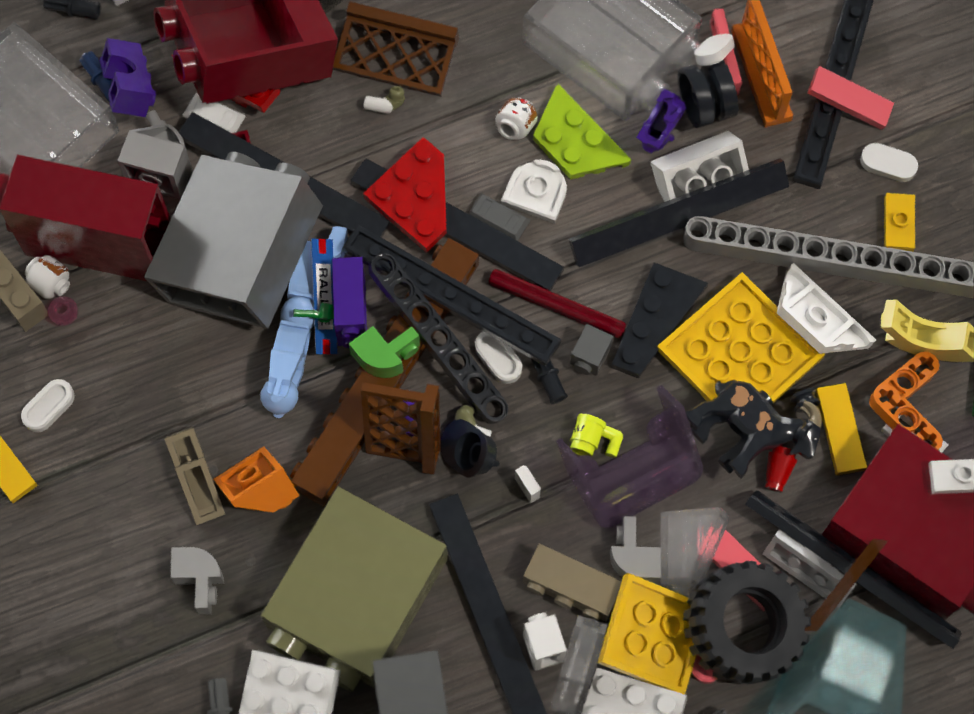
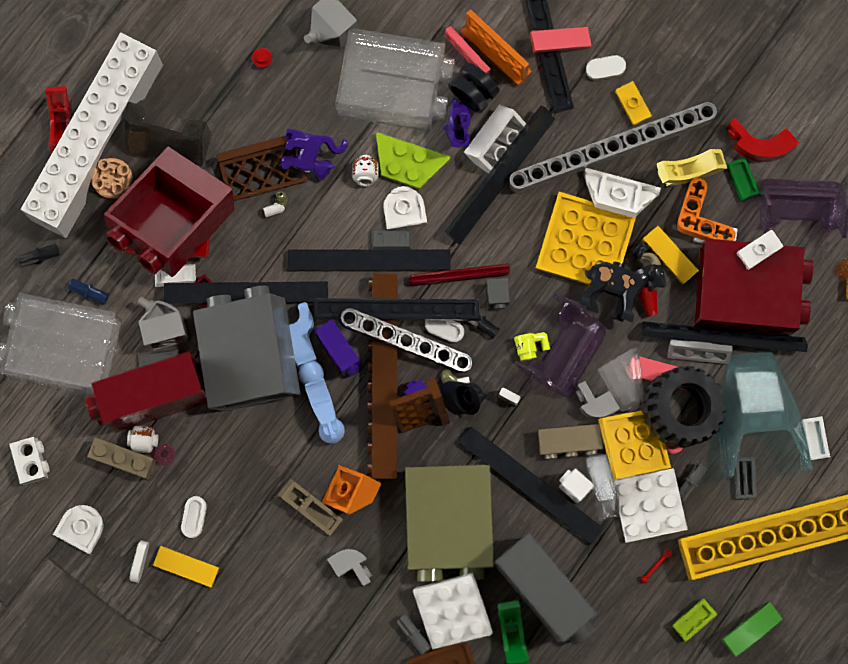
camera: 30 degrees left, 10 degrees up
(131, 83) = (120, 293): dark purple arch -> none
(323, 293) = (320, 353): sticker -> none
(324, 315) = (328, 364): green hand -> none
(382, 358) = (379, 374): bright green brick -> none
(414, 194) = (333, 256): red plate -> none
(459, 56) = (307, 152): none -> dark purple animal
(659, 310) = (522, 244): black wing -> none
(714, 49) = (463, 59): white tile -> none
(846, 584) = (728, 350): reddish brown sticker -> none

